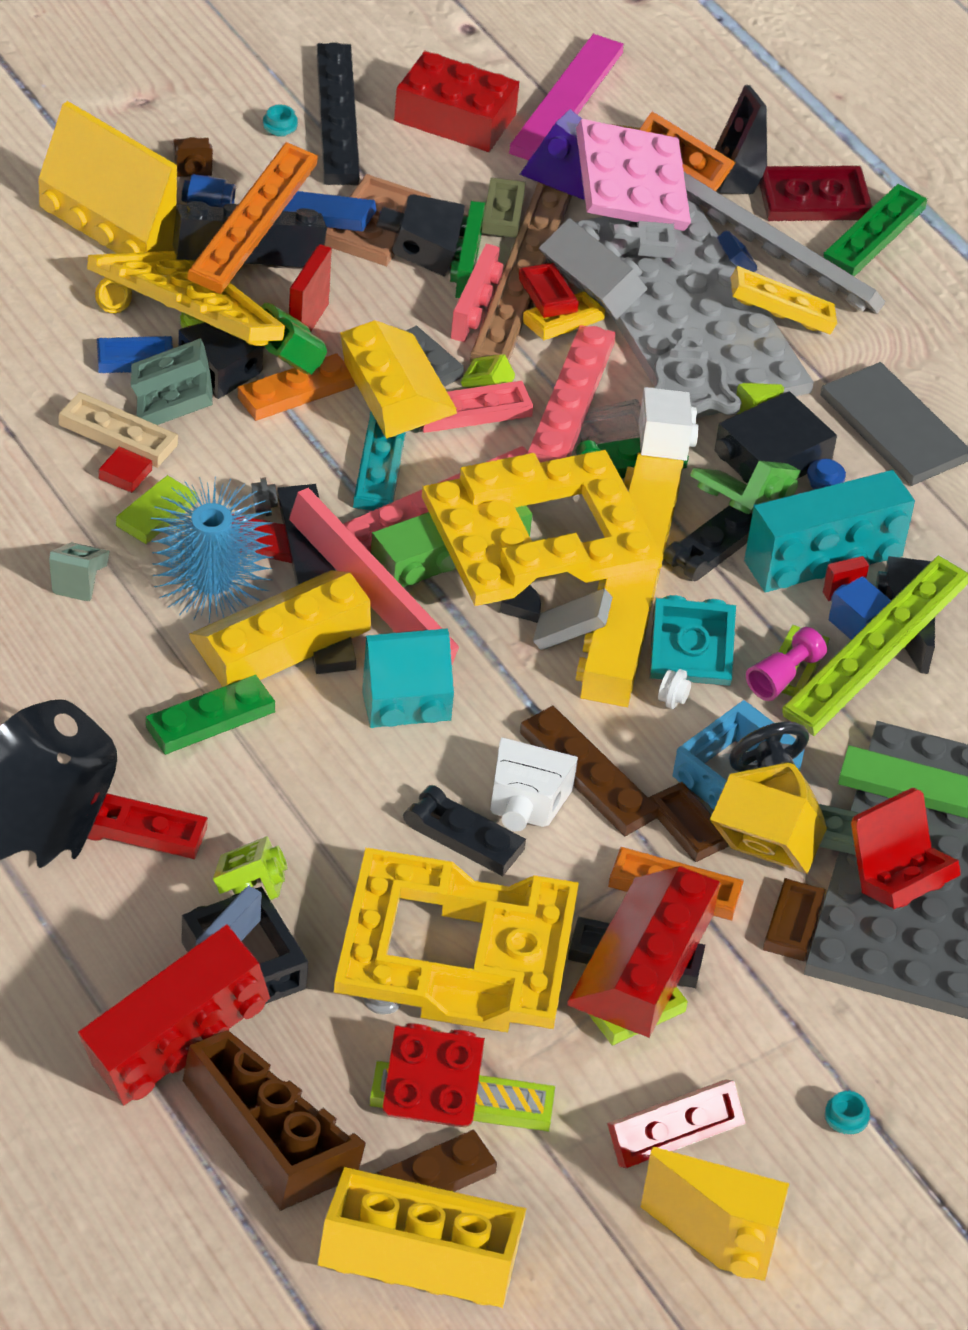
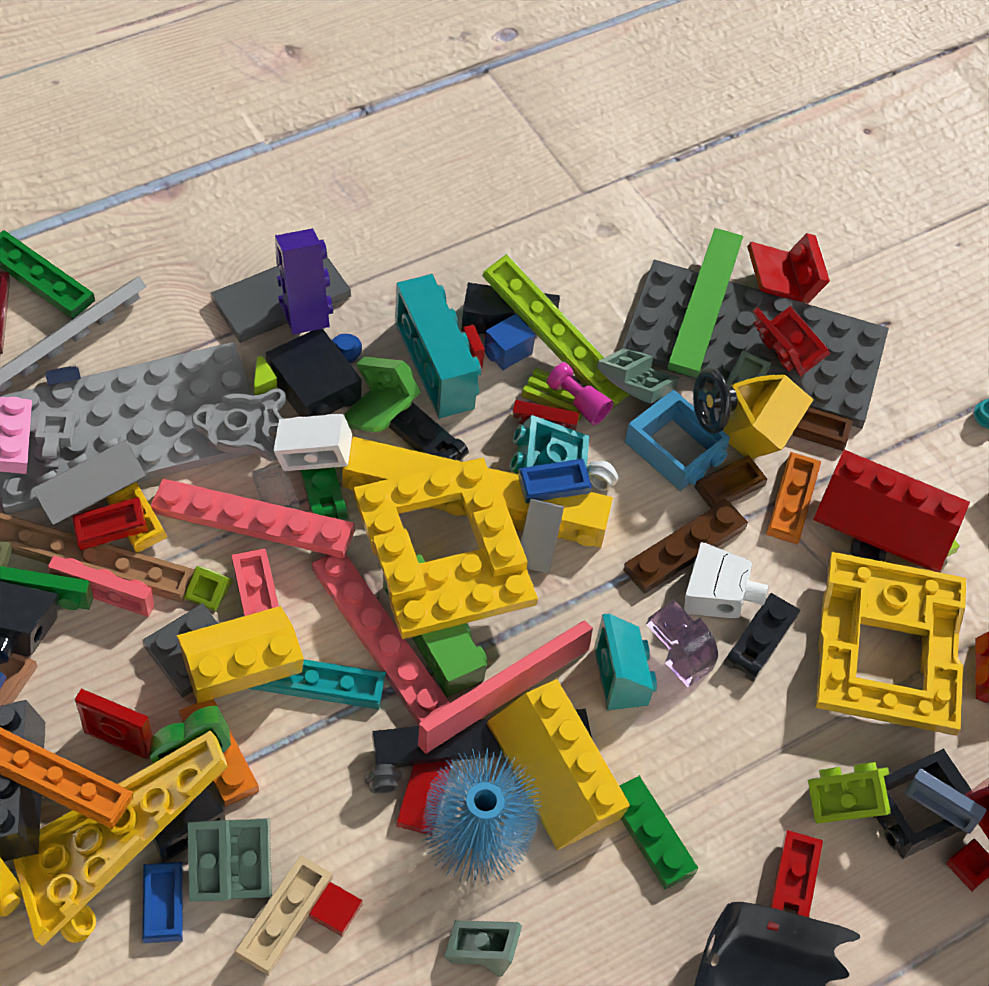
camera: 90 degrees left, 10 degrees up
(137, 517) = (392, 879): lime tile -> none
(433, 736) = (689, 642): none -> clear purple brick
(642, 620) = (554, 480): none -> blue tile
(754, 634) = (523, 410): none -> red plate
(783, 300) = (139, 346): yellow plate -> none
(832, 720) = (634, 375): none -> sand green slope
(872, 388) = (303, 281): none -> dark purple wedge

